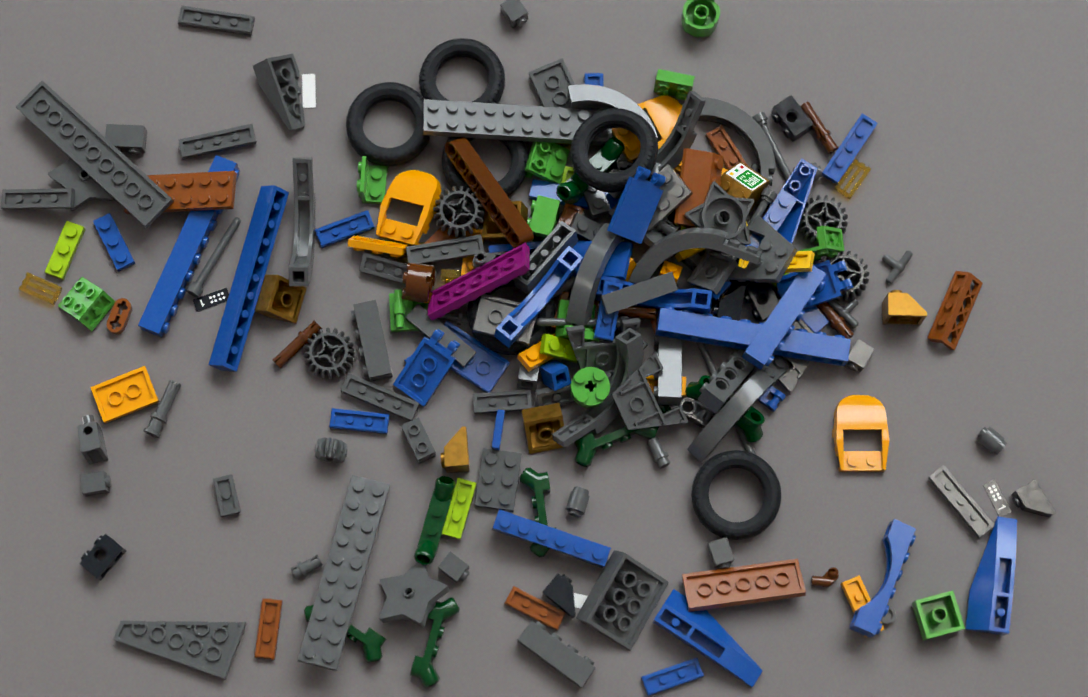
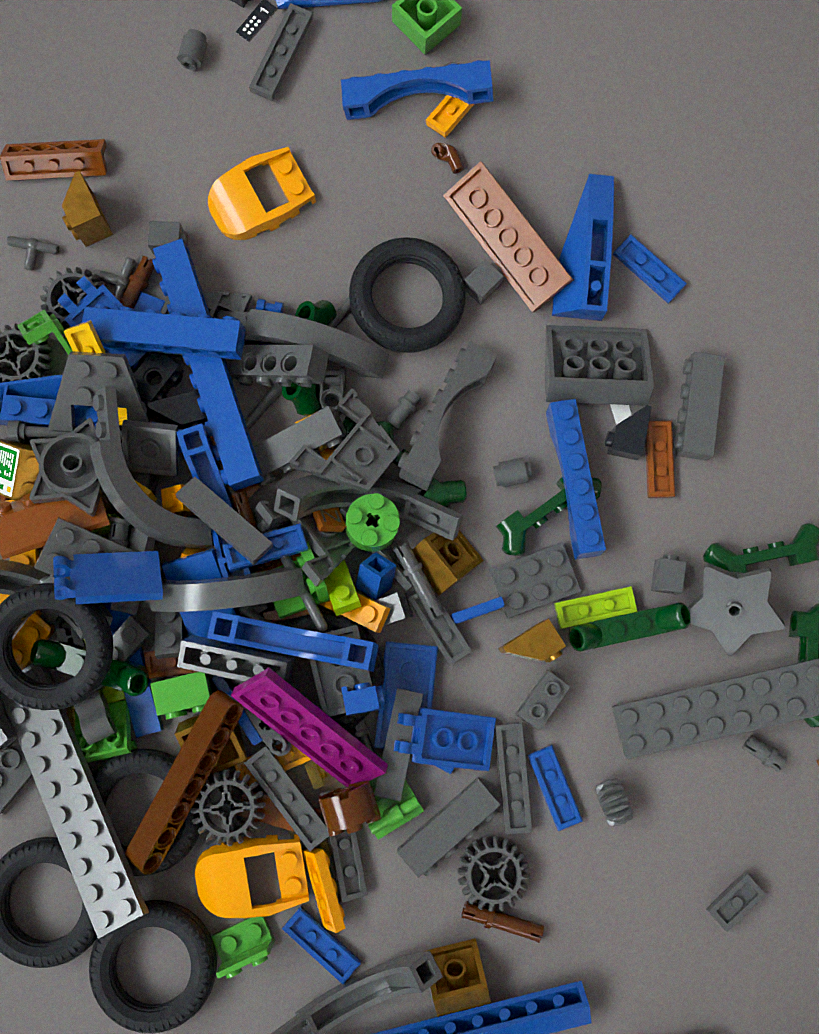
camera: 120 degrees left, 5 degrees up
(481, 320) = (362, 698): none -> blue brick
(537, 400) = (419, 580): none -> dark grey pin
(556, 159) = (95, 717): none -> dark grey axle
(607, 362) = (329, 520): none -> dark orange tile
(660, 511) = (470, 373): none -> dark grey arch

